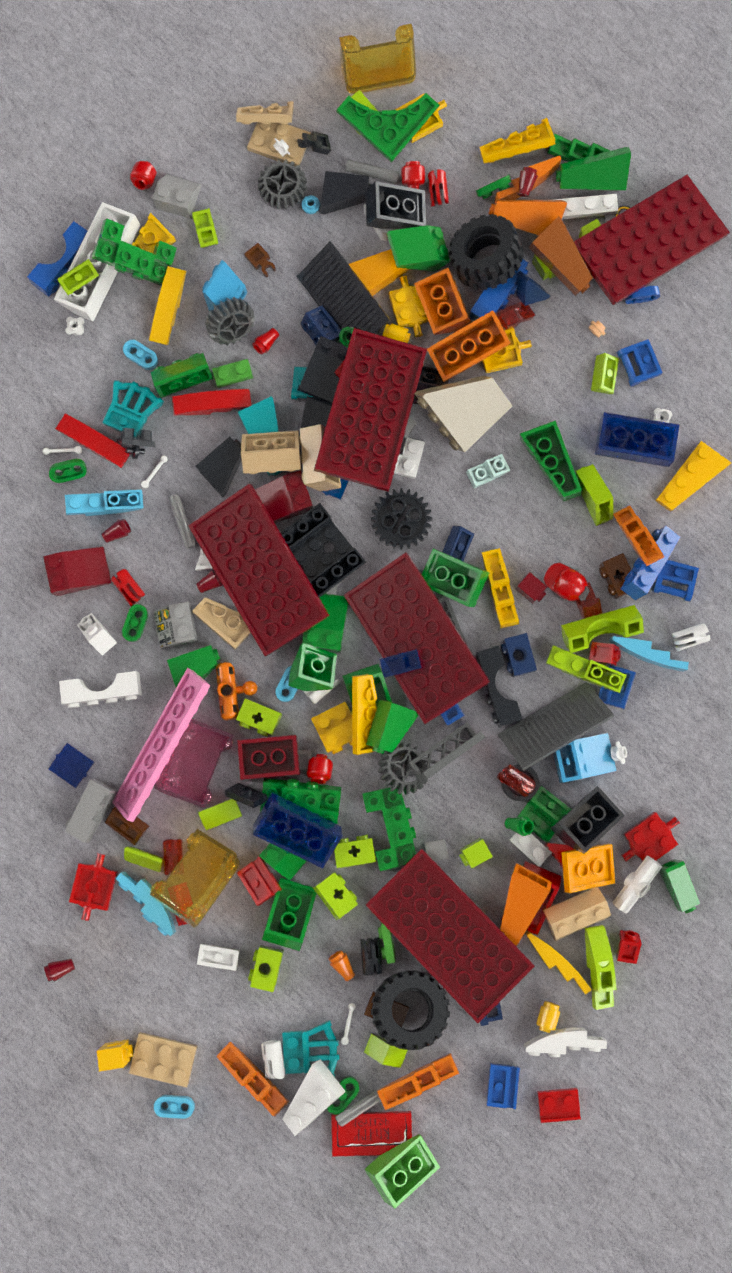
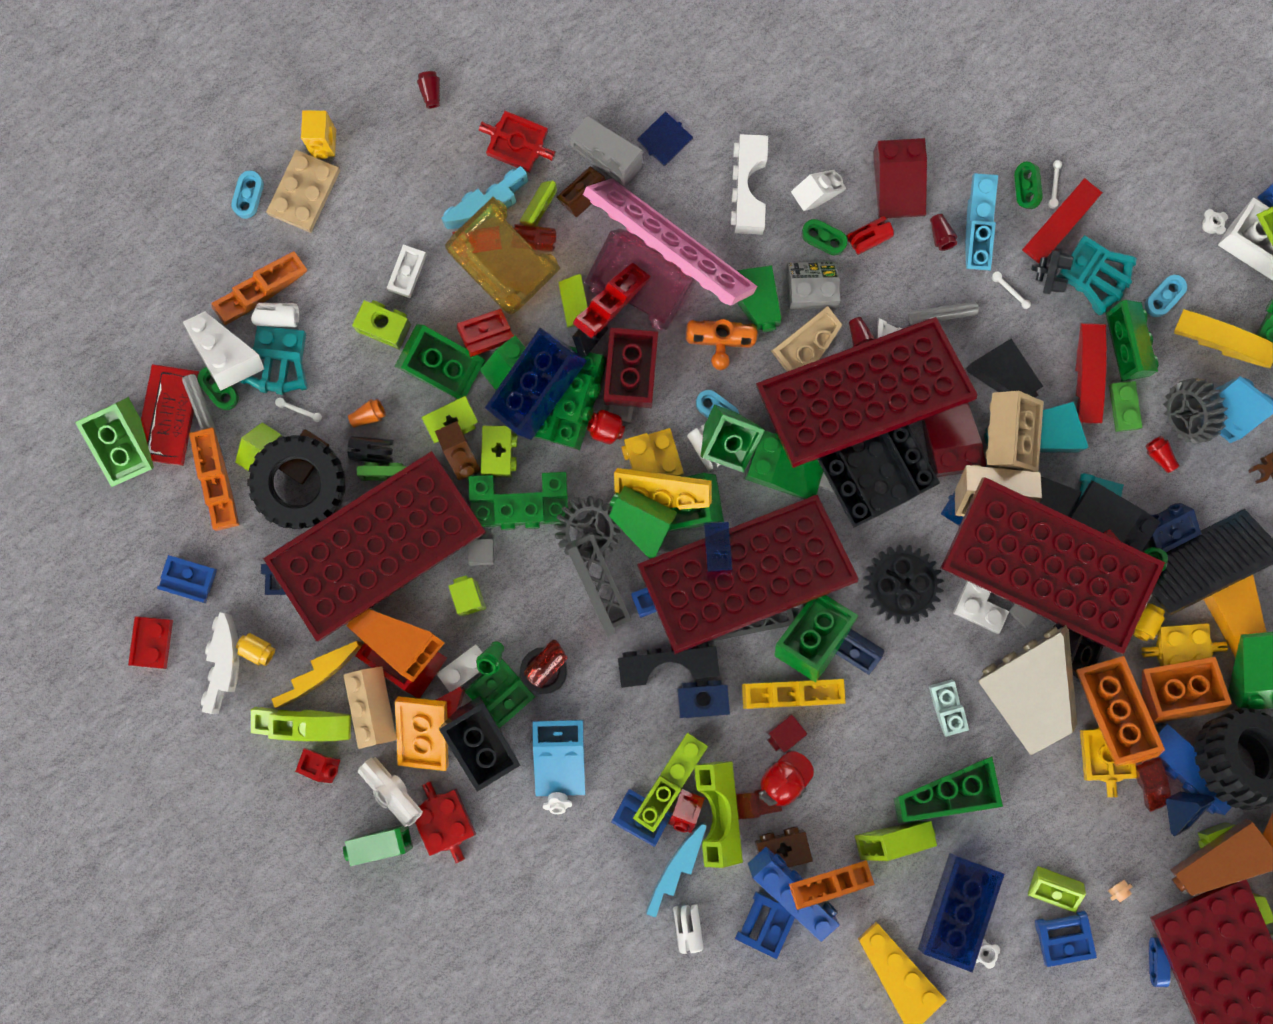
camera: 95 degrees right, 0 degrees up
(216, 782) = (611, 300): none -> red slope
(250, 709) = (694, 357): lime brick -> none
(361, 883) = (457, 451): none -> reddish brown brick
(555, 725) = (605, 728): dark grey window -> none

